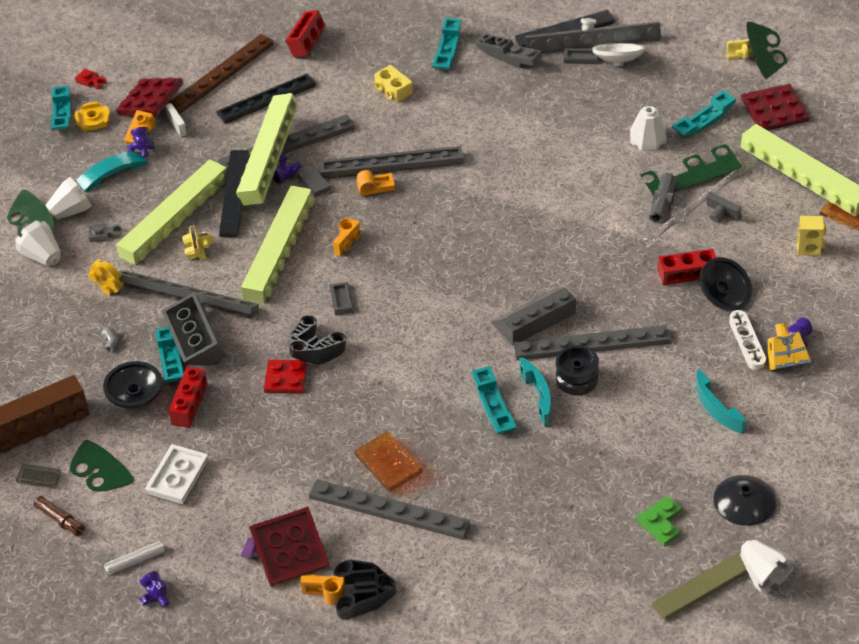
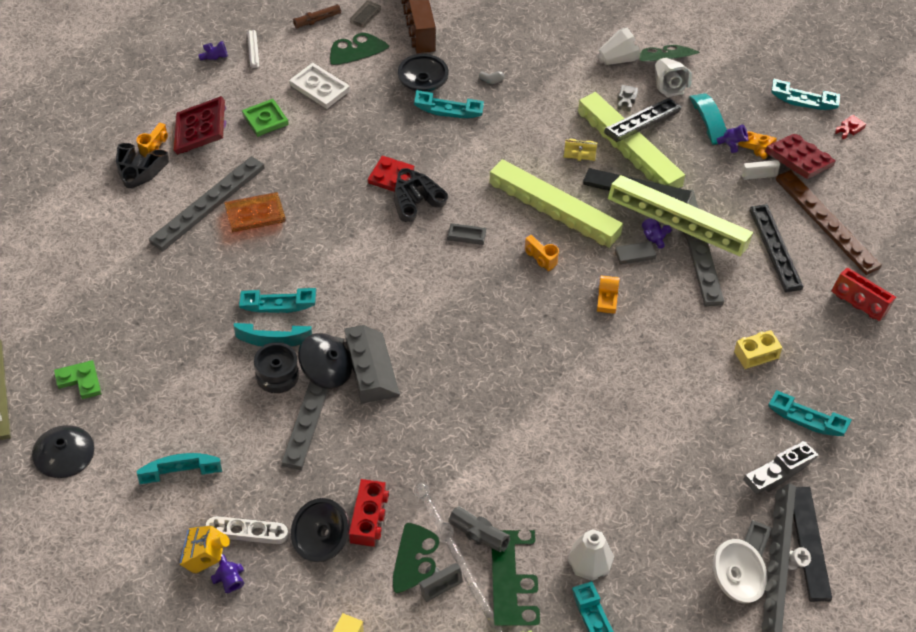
camera: 105 degrees right, 5 degrees up
(100, 118) = (798, 115): yellow plate -> none
(105, 276) = (557, 78): yellow plate -> none
(144, 202) = (642, 119): none -> black tile
(178, 291) = (520, 131): dark grey plate -> none
(188, 397) = (394, 105): red brick -> none
(193, 332) = (466, 122): dark grey slope -> none
(245, 503) = (265, 117): none -> bright green plate
(391, 161) = (636, 319): dark grey plate -> none
(551, 335) = (319, 365): none -> black dish
(721, 233) = (406, 566): none -> dark green piece

